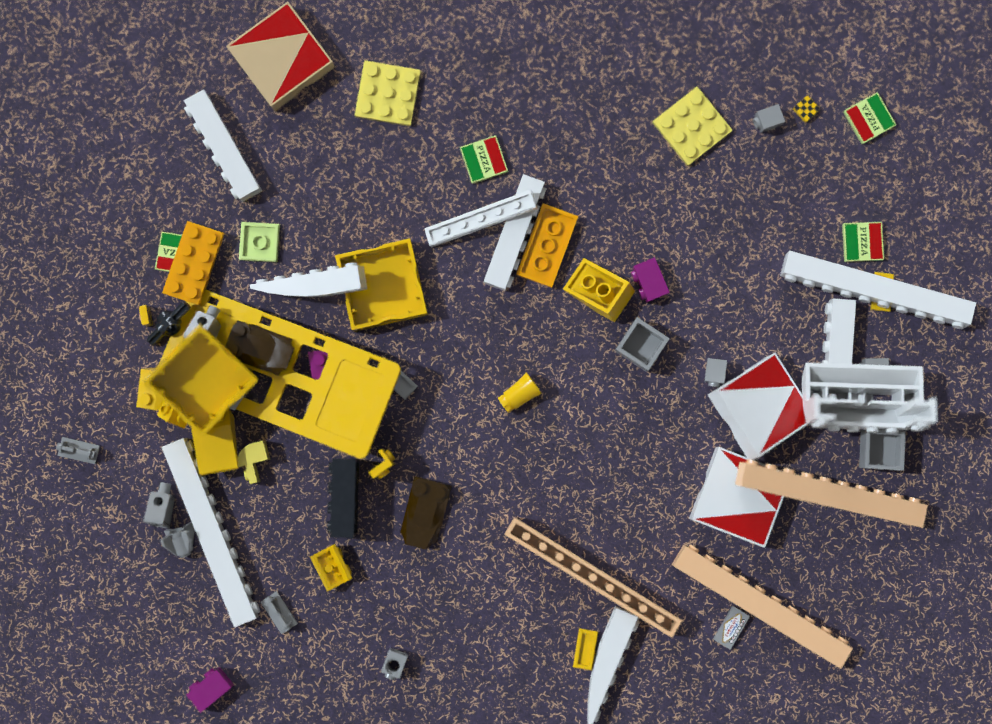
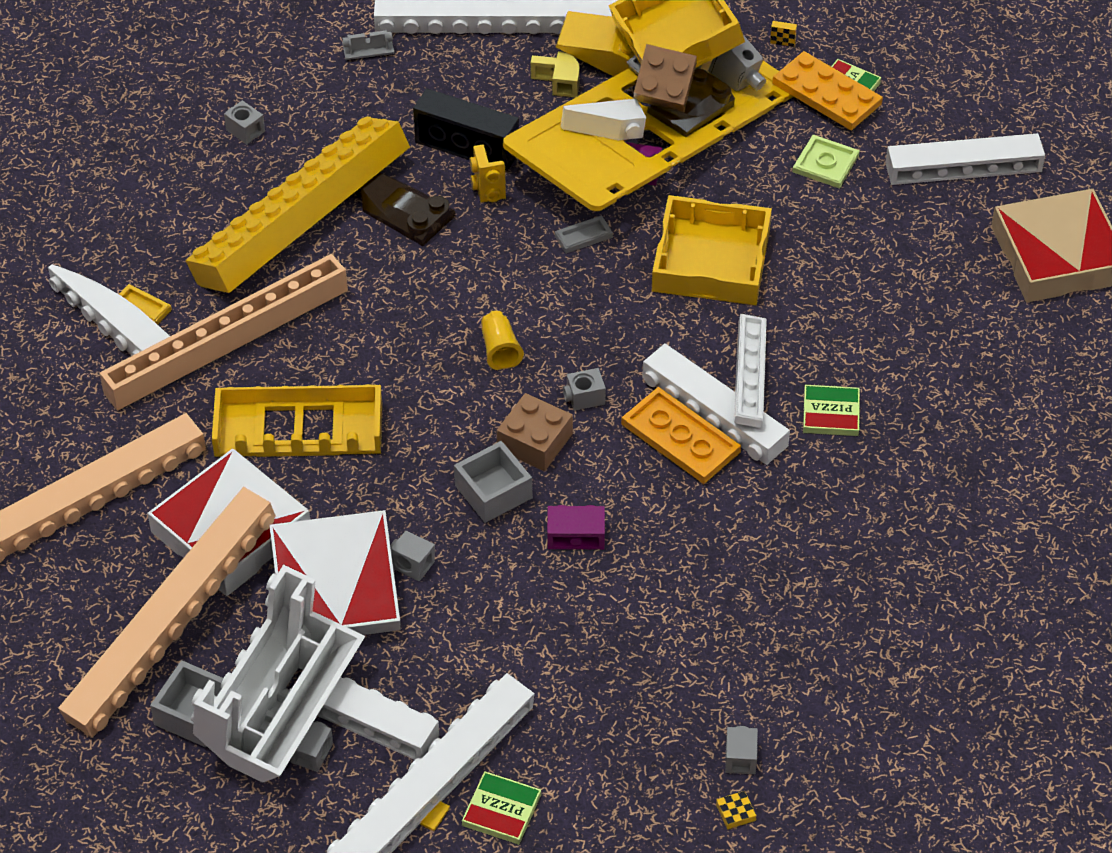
camera: 115 degrees right, 35 degrees down
(168, 323) = (767, 47): black axle -> none
(266, 362) = (665, 78): none -> medium nougat brick
(309, 390) = (606, 119): none -> white slope
(317, 283) = (744, 177): white slope -> none
(331, 567) = (391, 101): yellow bracket -> none
(387, 93) = (967, 340): light yellow plate -> none
(461, 582) = (297, 204): none -> yellow brick
(537, 312) = (585, 389): none -> light grey brick
(588, 337) = (535, 431): none -> medium nougat brick
(599, 289) = (589, 468): yellow slope -> none
(659, 529) = (242, 411): none -> yellow window
(692, 126) = (773, 658): light yellow plate -> none
(731, 627) = (65, 455): tile -> none

